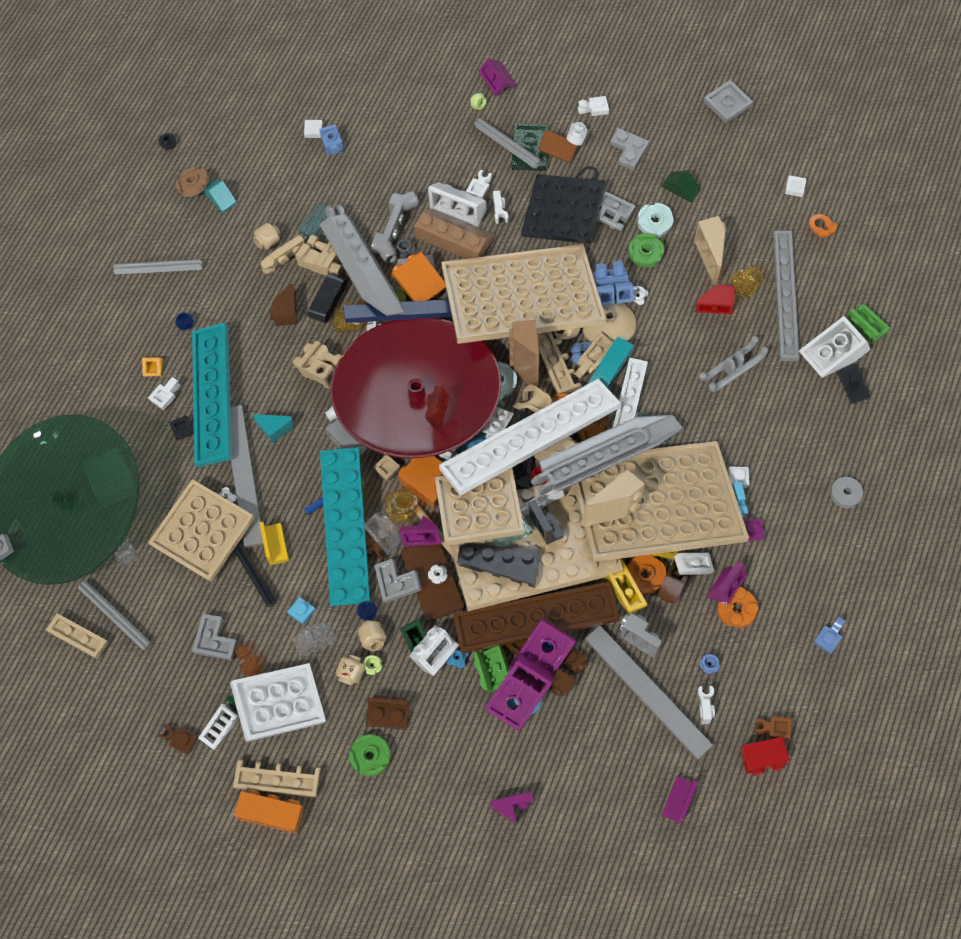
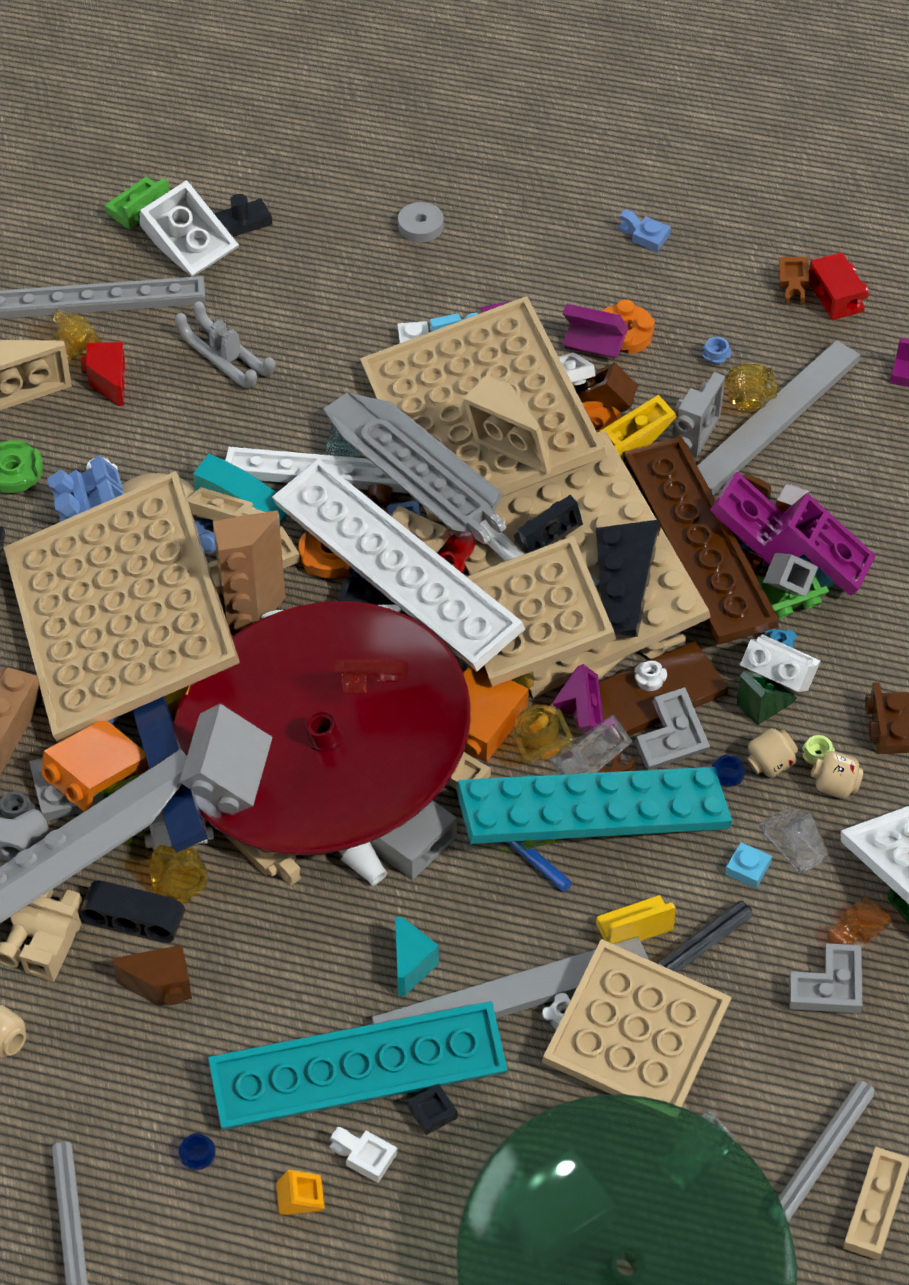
camera: 100 degrees left, 15 degrees down
(281, 255) = (39, 1000): tan hinge -> none
(314, 363) = (279, 906): tan hips -> none
(388, 330) = (226, 759): none -> light grey brick
(490, 662) = (790, 574): none -> light grey brick
(537, 402) = (322, 561): tan piece -> none
(665, 673) = (748, 386): none -> clear yellow piece
(706, 710) = (786, 349): white plate -> none

